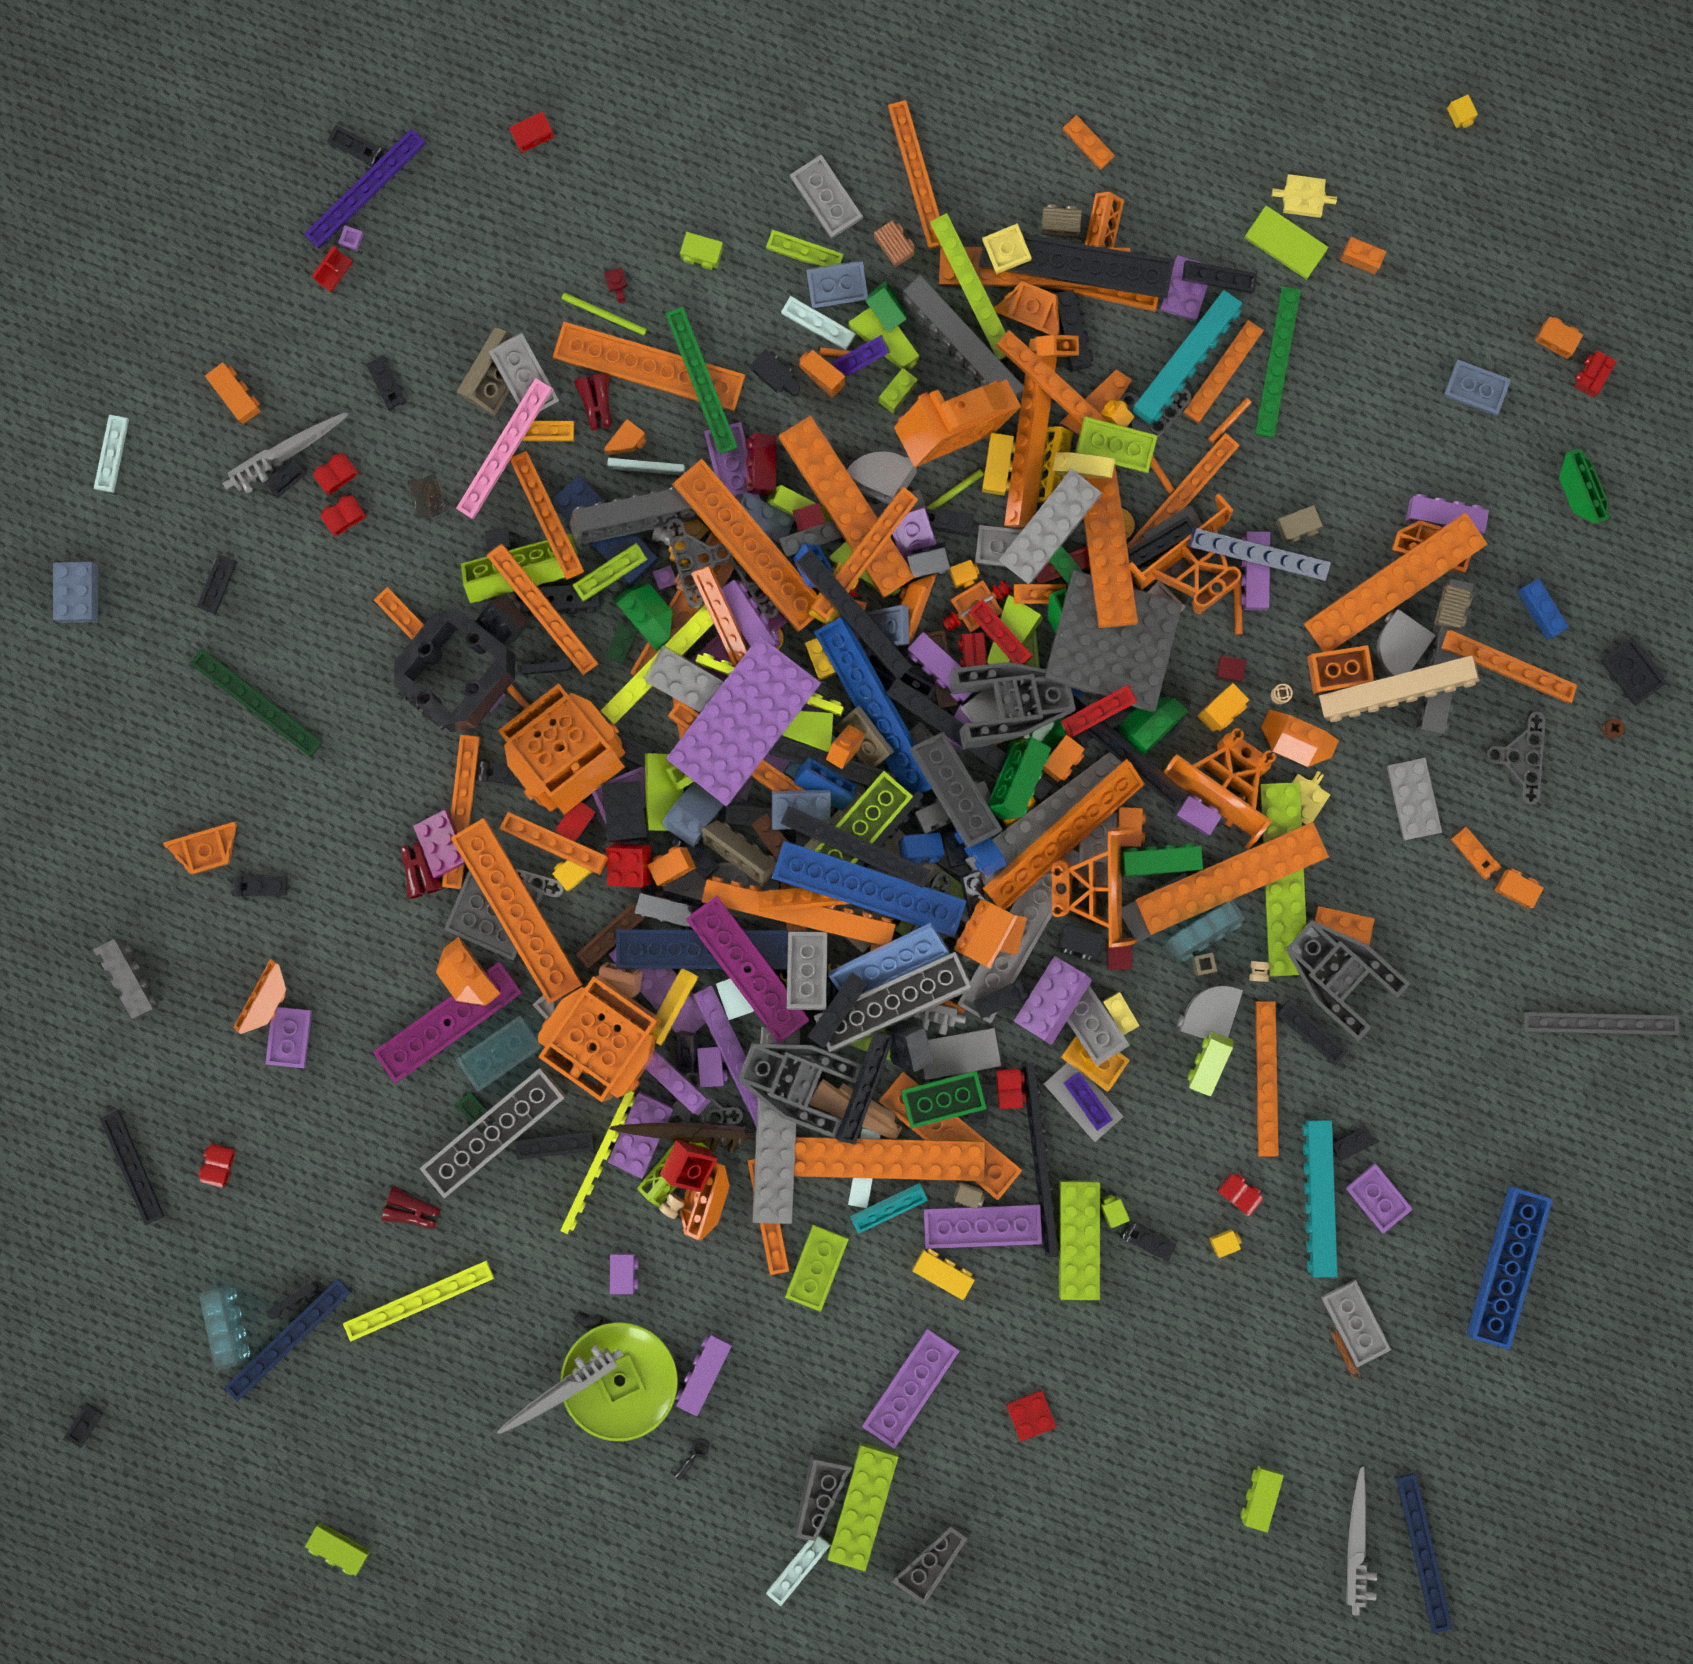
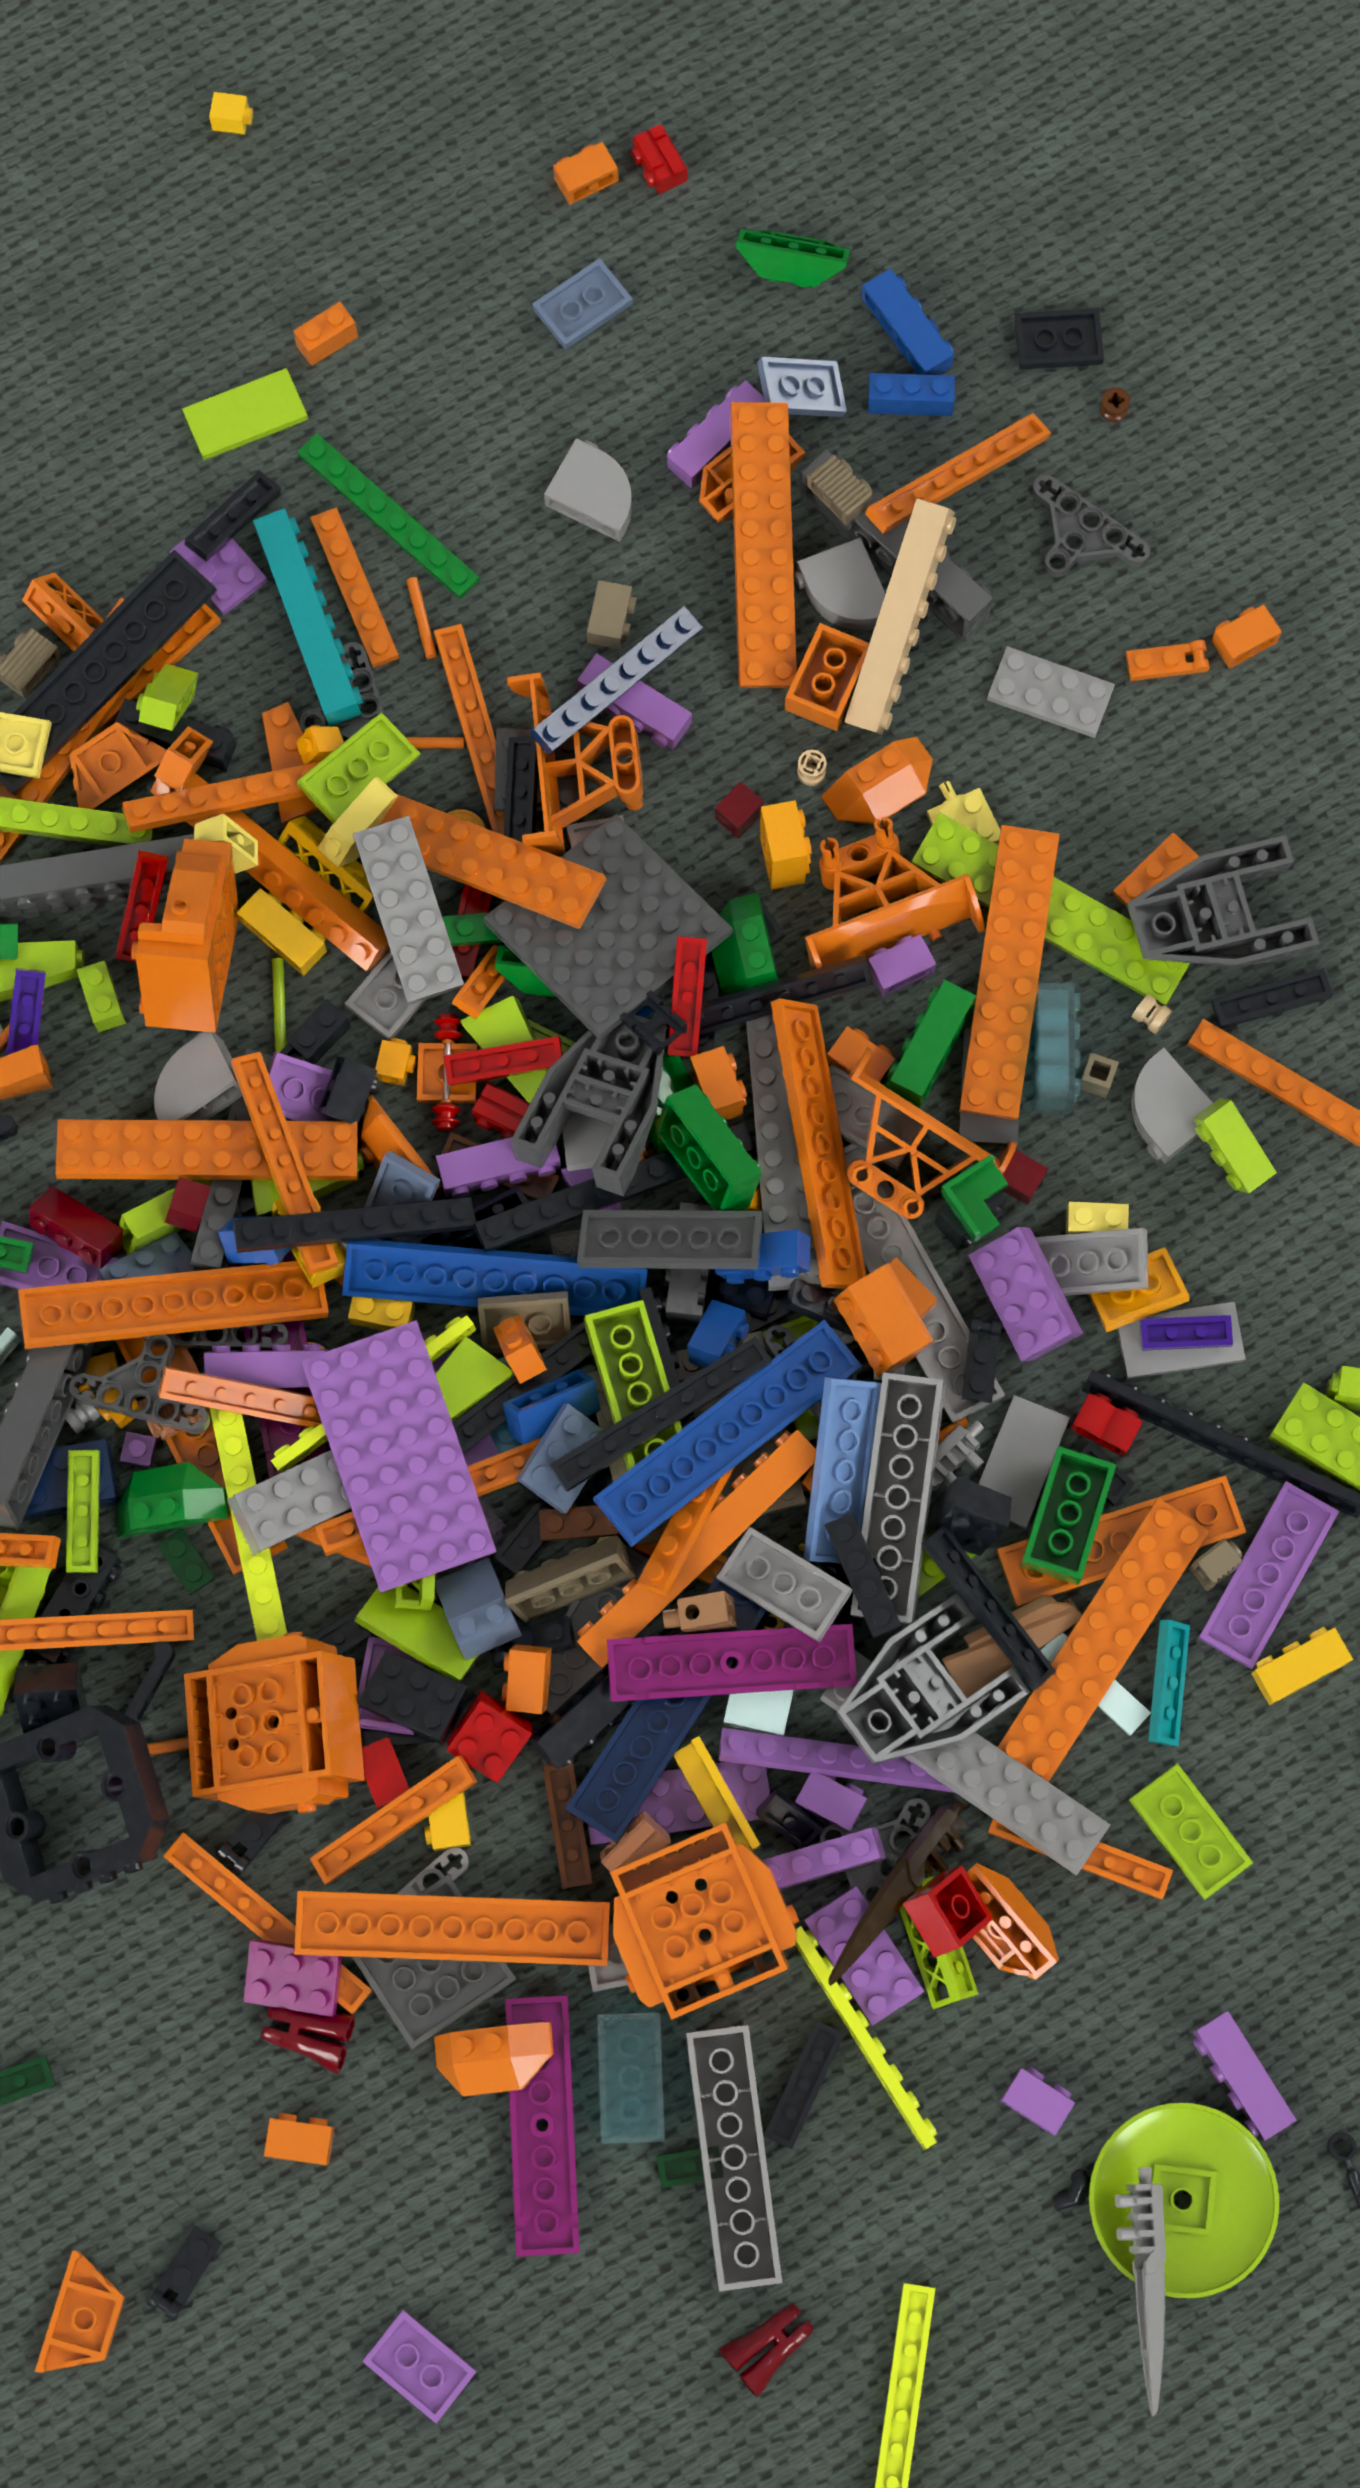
camera: 55 degrees left, 10 degrees down
(263, 1000) = (344, 2365): wedge -> none
(361, 901) = (299, 2140): none -> orange brick
(672, 1205) = (986, 1973): tan wheel -> none
(767, 941) = (715, 1613): none -> medium nougat torso
(961, 378) = (141, 900): none -> red plate
(1027, 398) = (225, 830): none -> light yellow brick
(1077, 705) = (662, 1017): none -> black piece
(1085, 936) = (967, 1196): none -> green panel
(1088, 312) = (167, 697): none -> lime brick
(1238, 609) = (669, 756): orange piece -> none
(1304, 196) = (202, 357): light yellow plate -> none
(1367, 466) = (592, 490): none -> light grey brick
(1506, 544) = (804, 384): none -> plate
(1584, 580) = (907, 324): none -> blue brick

